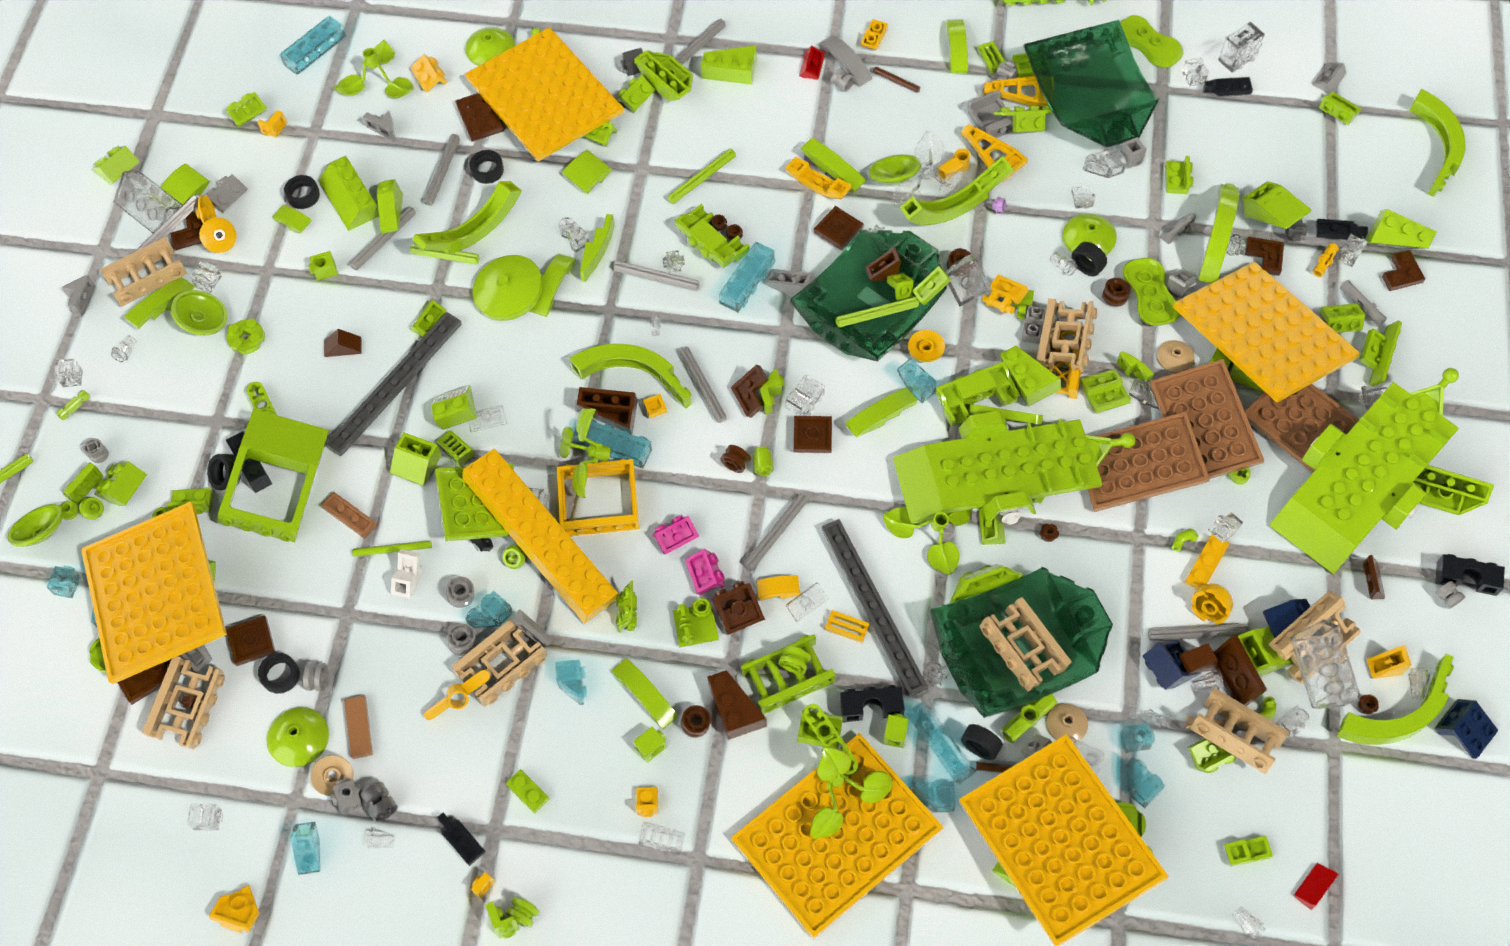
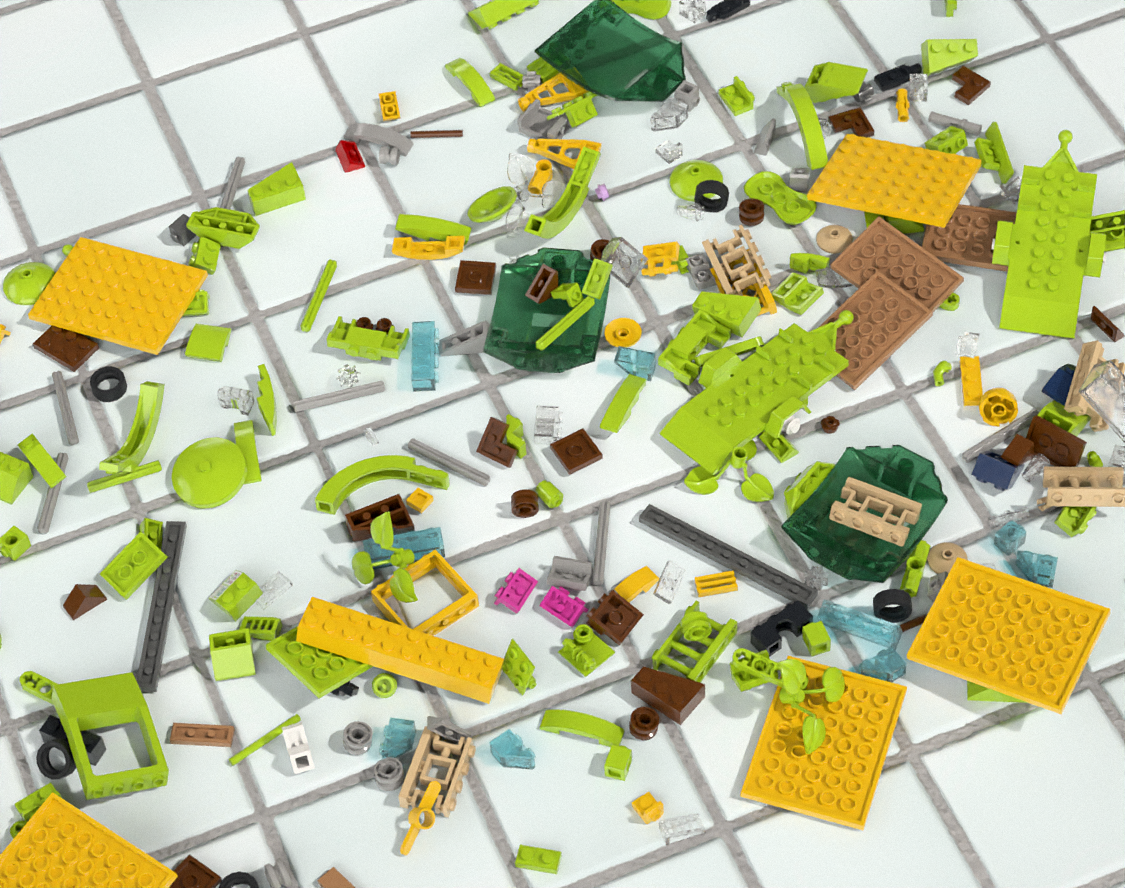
camera: 30 degrees left, 10 degrees down
(394, 336) = (133, 565): none -> lime plate
(728, 545) = (570, 573): none -> light grey bracket

